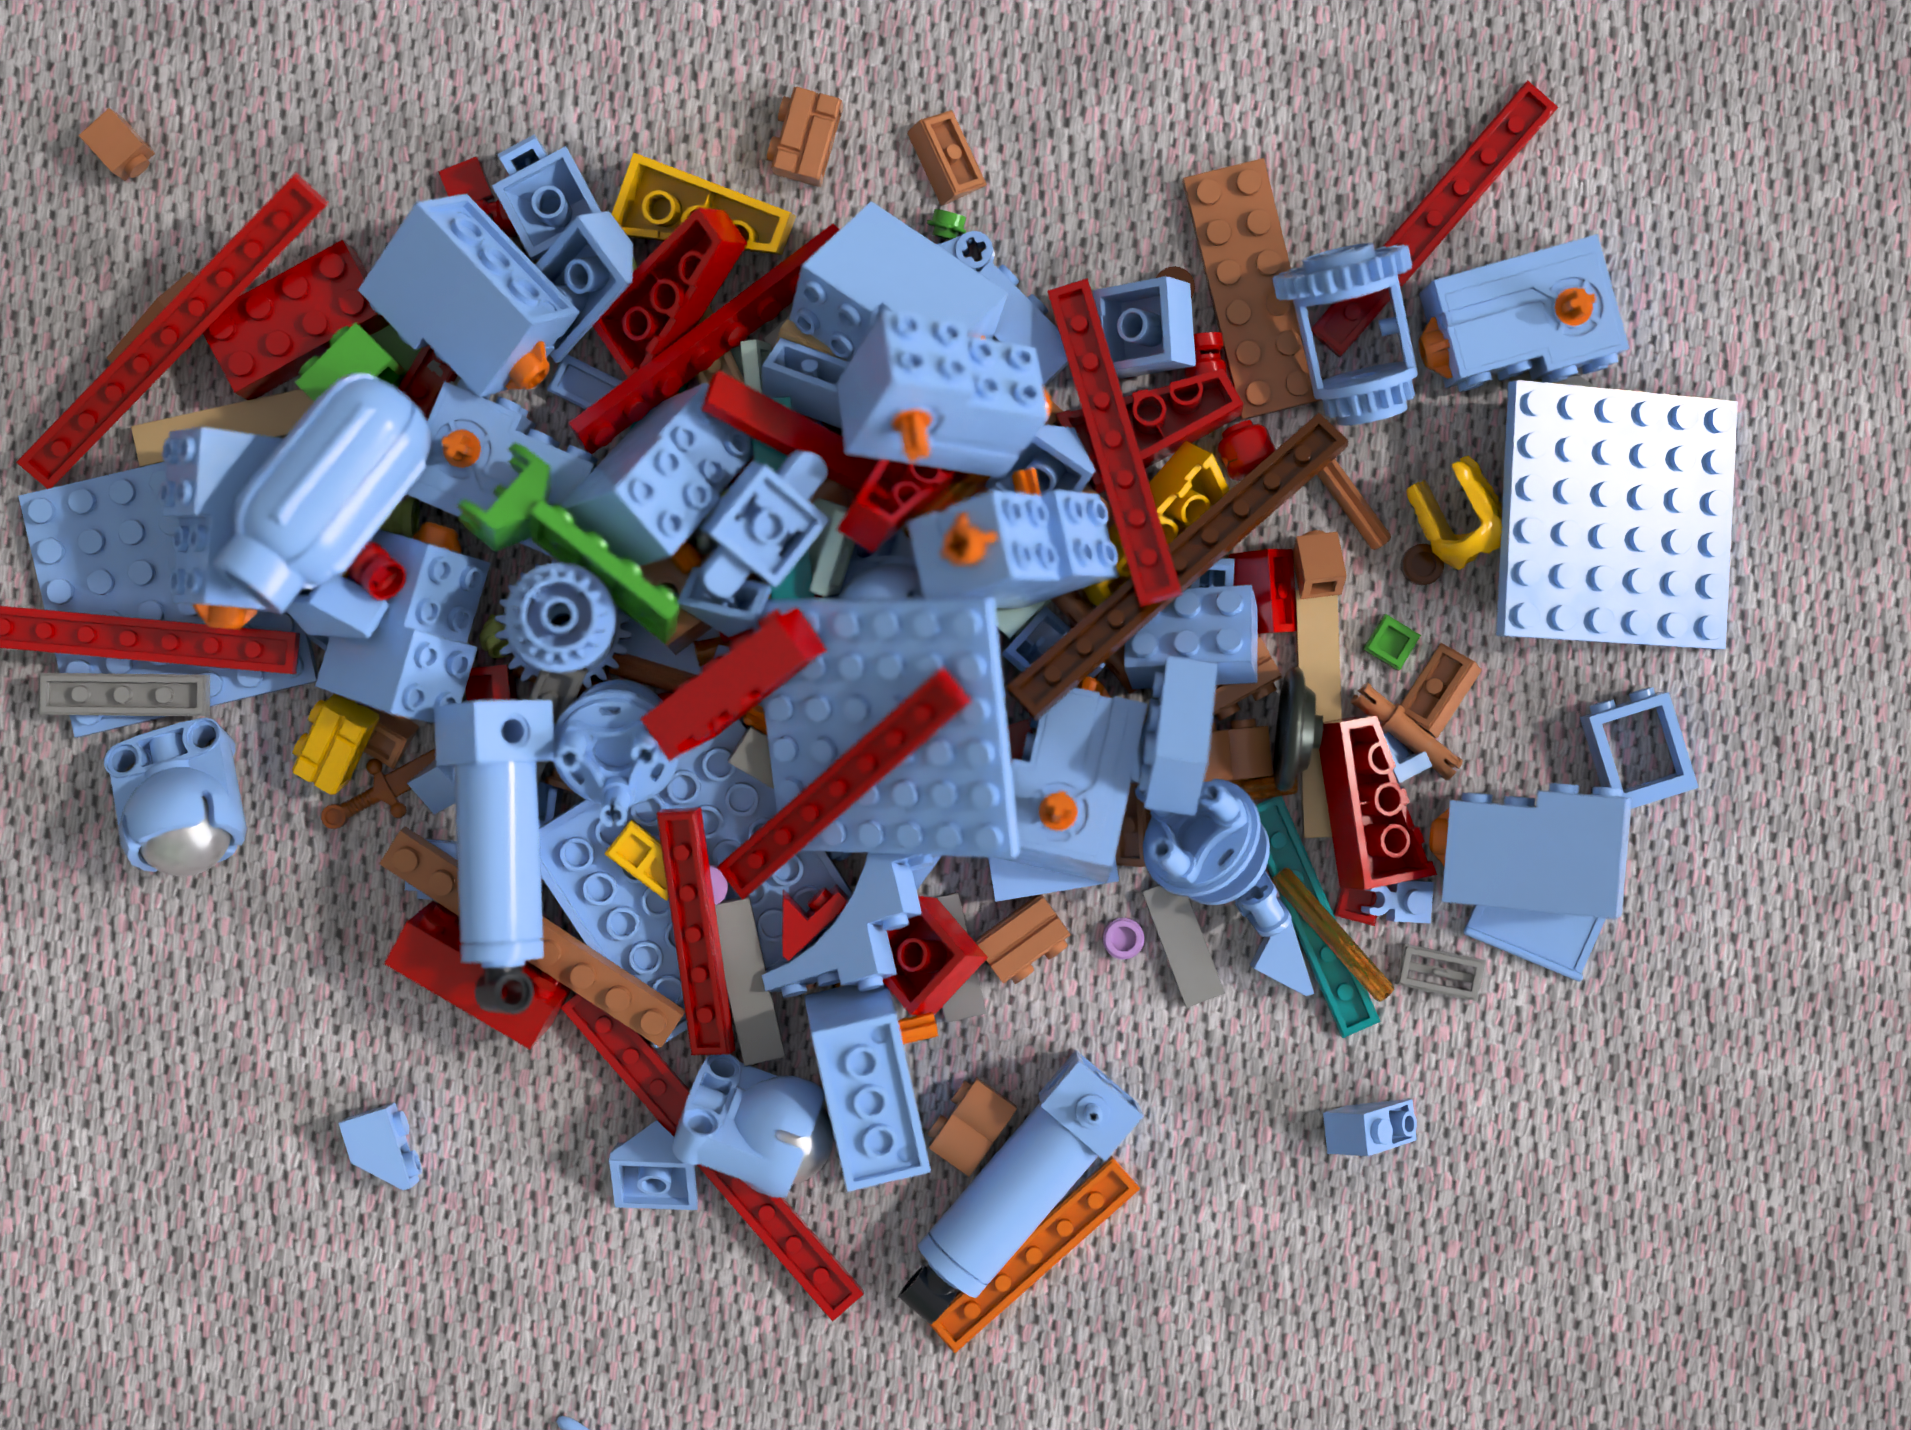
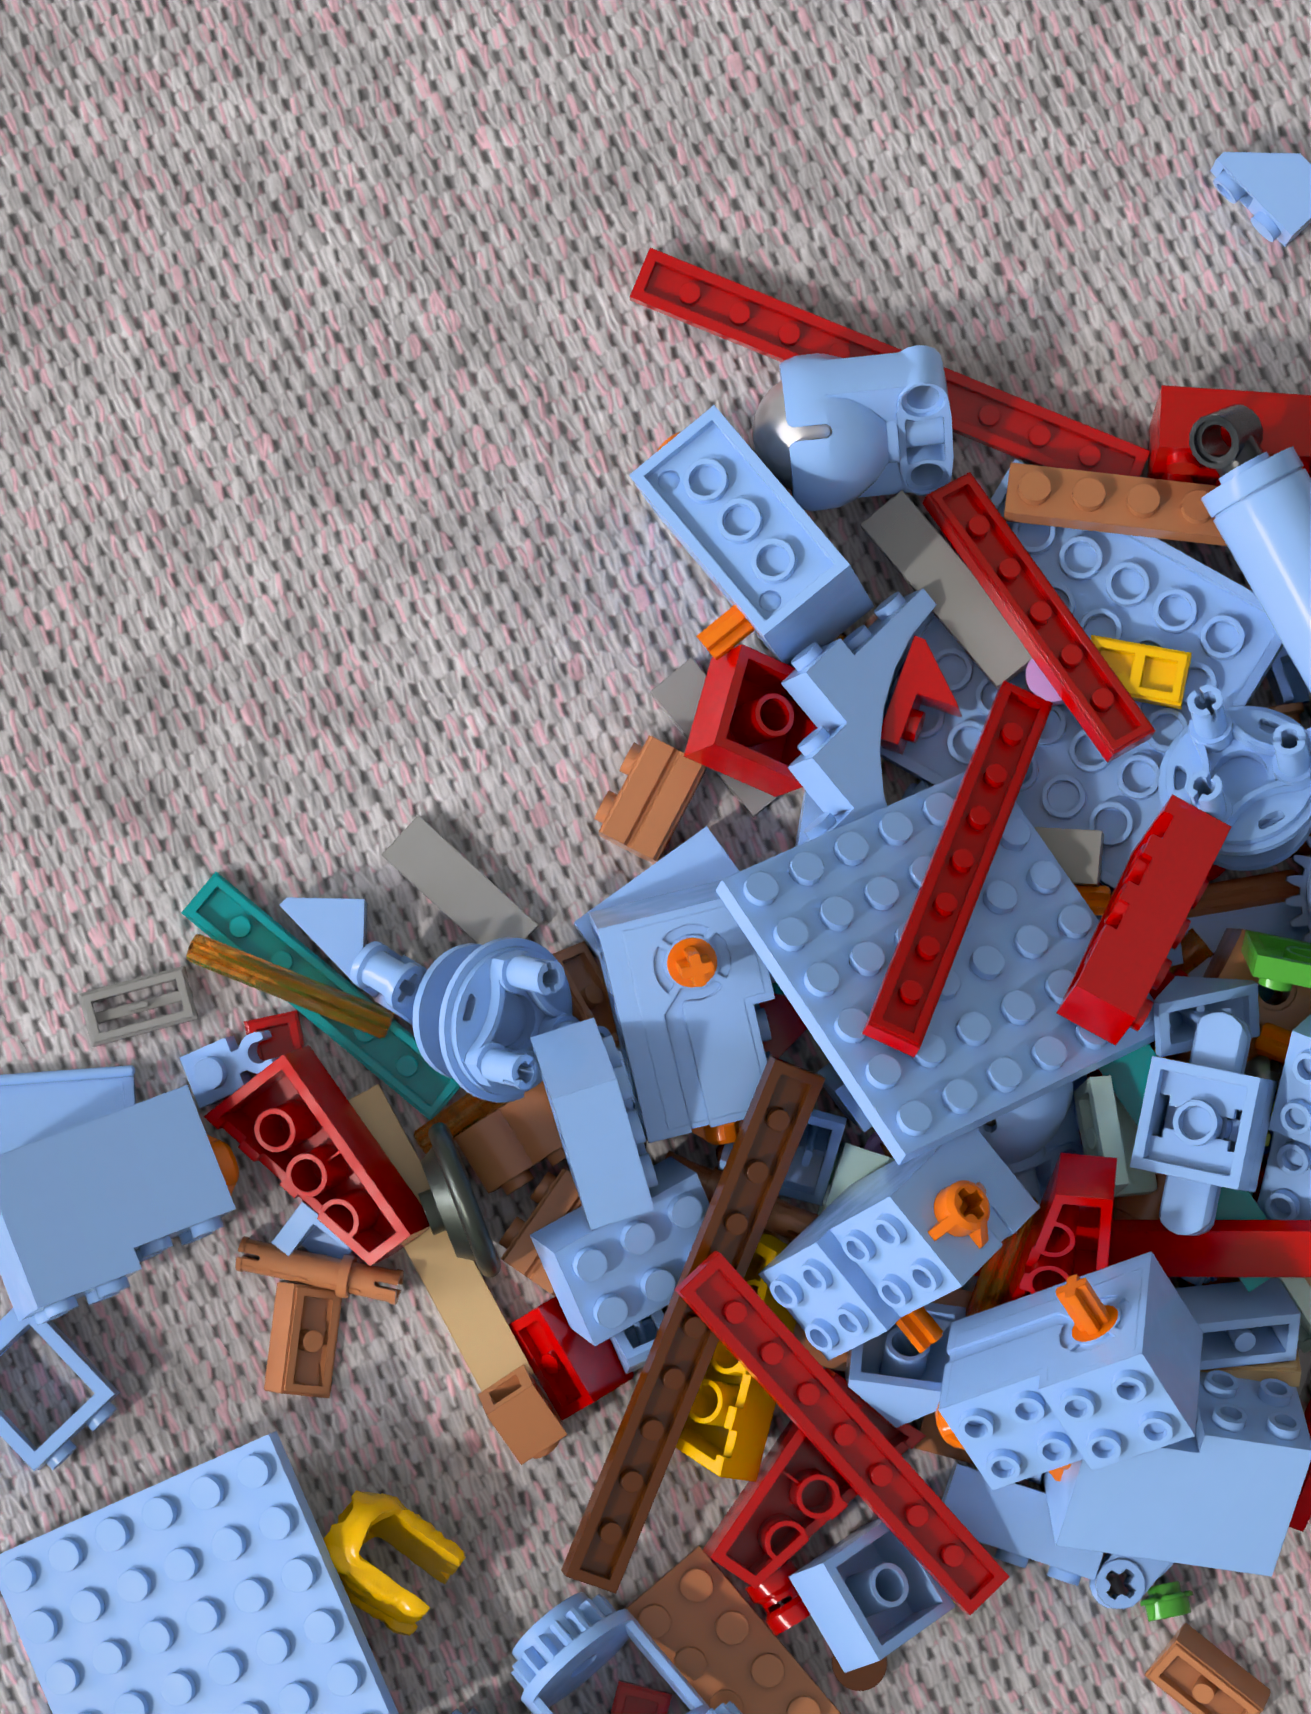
camera: 155 degrees right, 5 degrees down
(650, 1174) = (946, 310): light blue slope -> none
(971, 1125) = (602, 551): nougat brick -> none
(1052, 1240) = (453, 440): orange tile -> none
(1073, 1124) = (486, 613): light blue piece -> none
(1123, 938) = (532, 859): lavender tile -> none
(1244, 448) = (680, 1510): red head -> none
(1354, 505) = (514, 1510): nougat axle -> none
(1369, 1127) = (133, 782): light blue slope -> none
(1391, 642) = (388, 1368): bright green tile -> none
(1421, 565) = (398, 1476): reddish brown tile -> none

